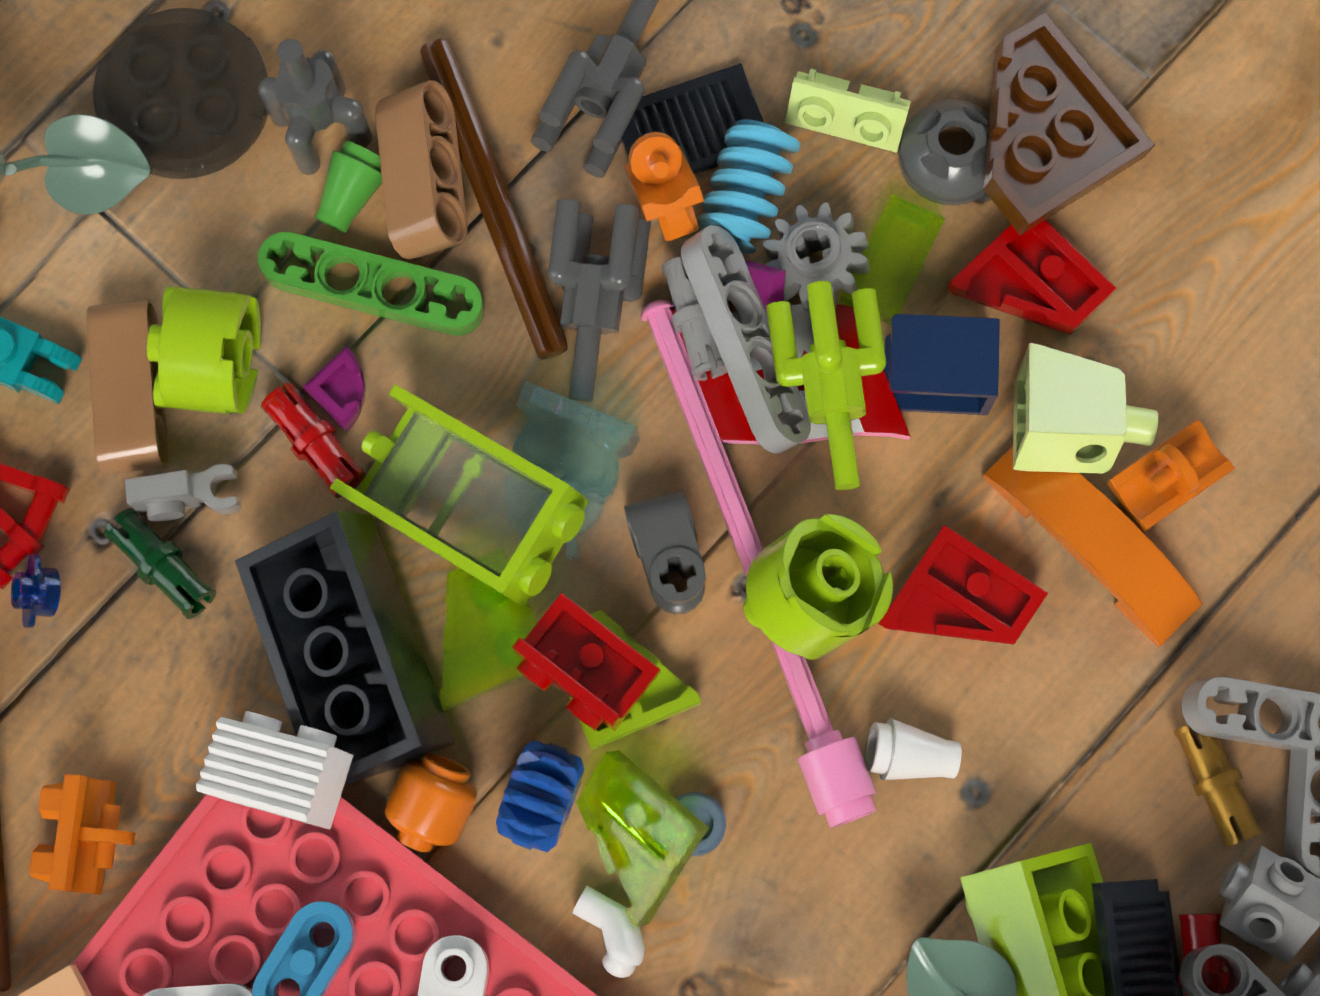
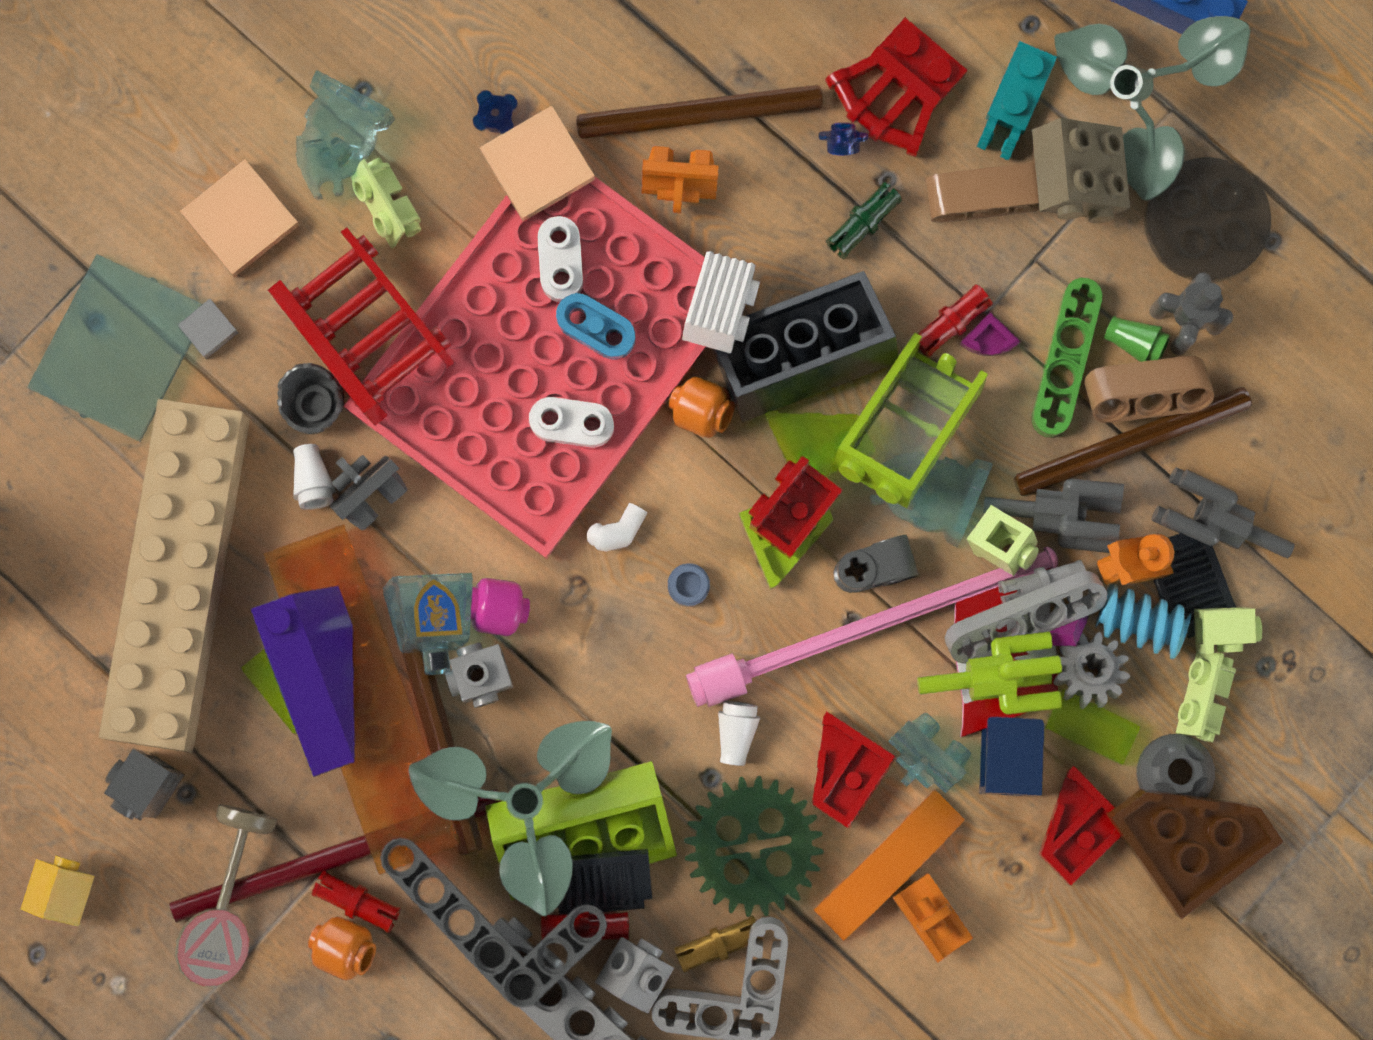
camera: 85 degrees right, 5 degrees up
(100, 252) = (1081, 169): none -> dark tan brick
(168, 494) = (910, 223): light grey plate -> none
(205, 350) = (1011, 244): lime brick -> none
(539, 796) = (705, 478): blue gear -> none
(617, 376) = (999, 530): none -> yellowish green brick
(639, 832) = (682, 545): clear neon green wing -> none
(758, 77) = (1226, 628): none -> yellowish green brick
(818, 586) = (848, 665): lime brick -> none
(945, 486) = (924, 758): none -> clear light blue hips
(1073, 414) = (975, 849): yellowish green torso -> none
(1132, 720) = (760, 885): none -> clear green gear

